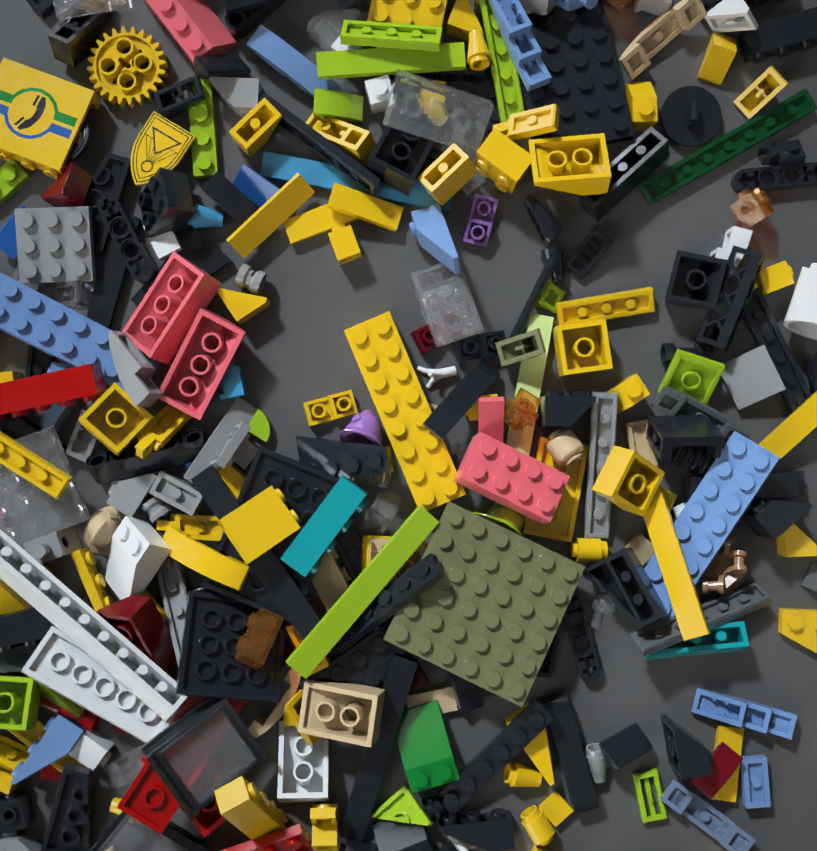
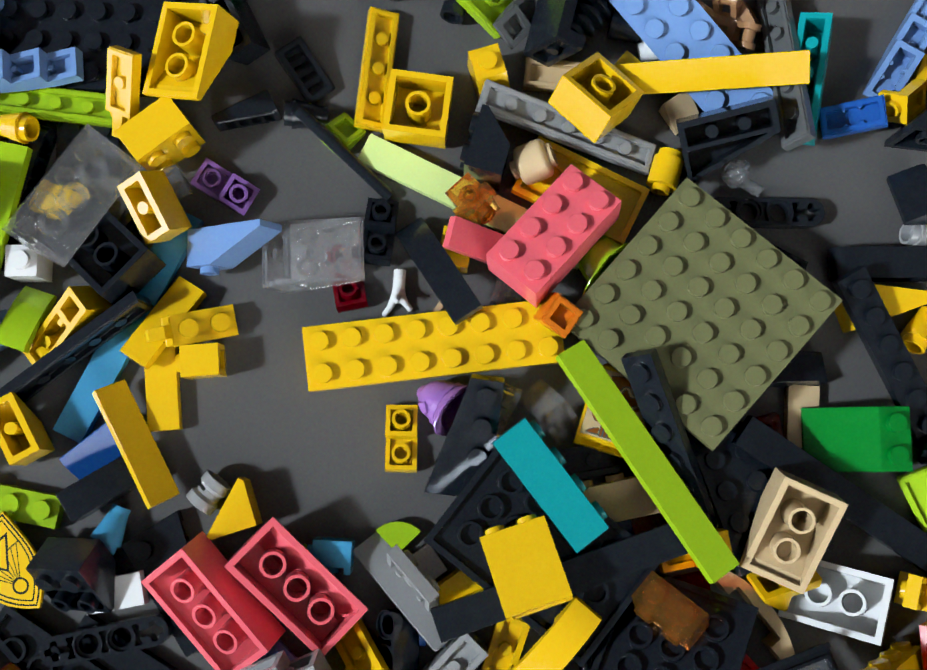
camera: 75 degrees left, 5 degrees down
(368, 232) = (195, 326): none -> yellow hinge
(452, 498) = (558, 314): none -> orange slope
(521, 347) = (396, 179): olive slope -> none
(674, 684) = (853, 117): none -> blue plate
(695, 722) = (907, 103): none -> yellow bracket

